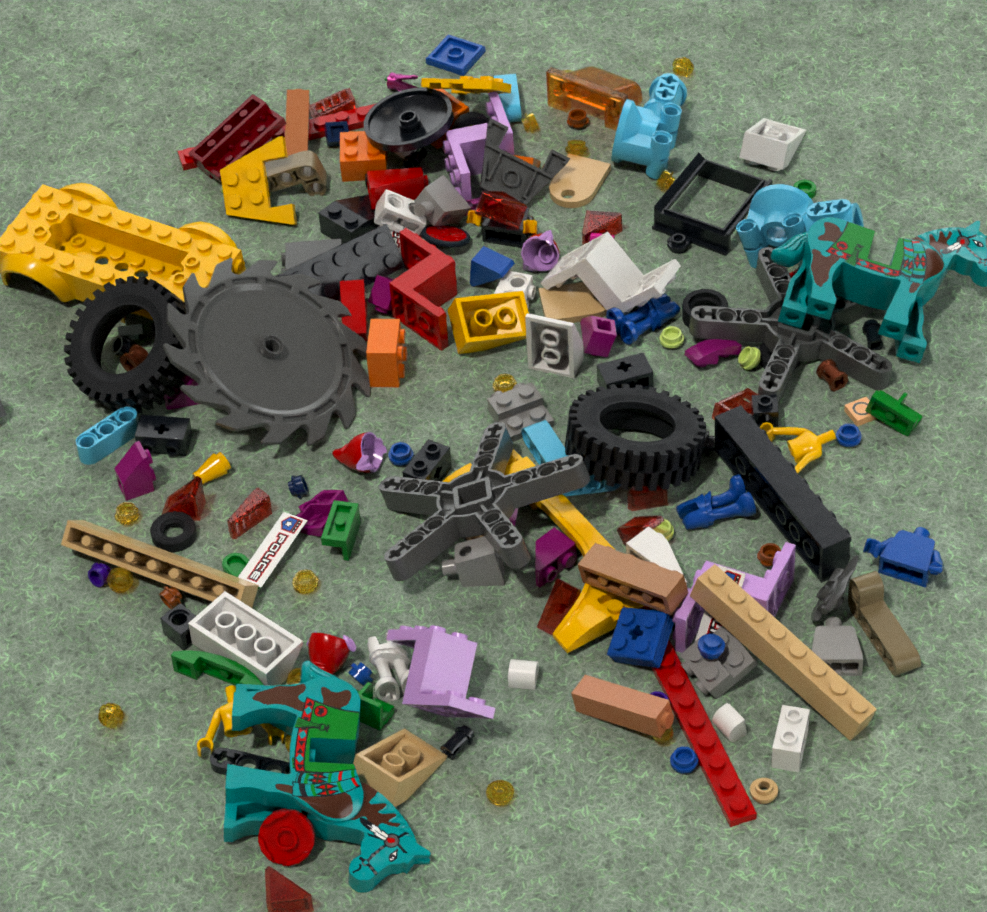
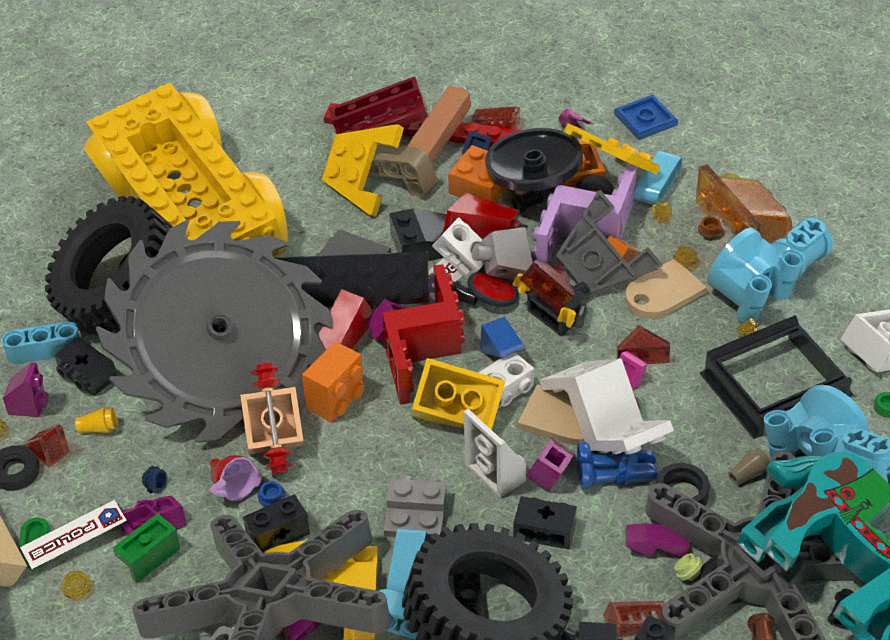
camera: 30 degrees right, 0 degrees up
(249, 513) = (92, 484): clear red slope -> none
(362, 399) = (271, 419): none -> light nougat brick
(504, 383) = (424, 465): clear yellow plate -> none
(540, 252) = (563, 347): lavender hat -> none
(671, 337) = (627, 502): yellowish green plate -> none
(678, 243) = (712, 407): black plate -> none
(682, 66) = (853, 219): clear yellow plate -> none
(742, 271) = (750, 466): none -> dark tan cone

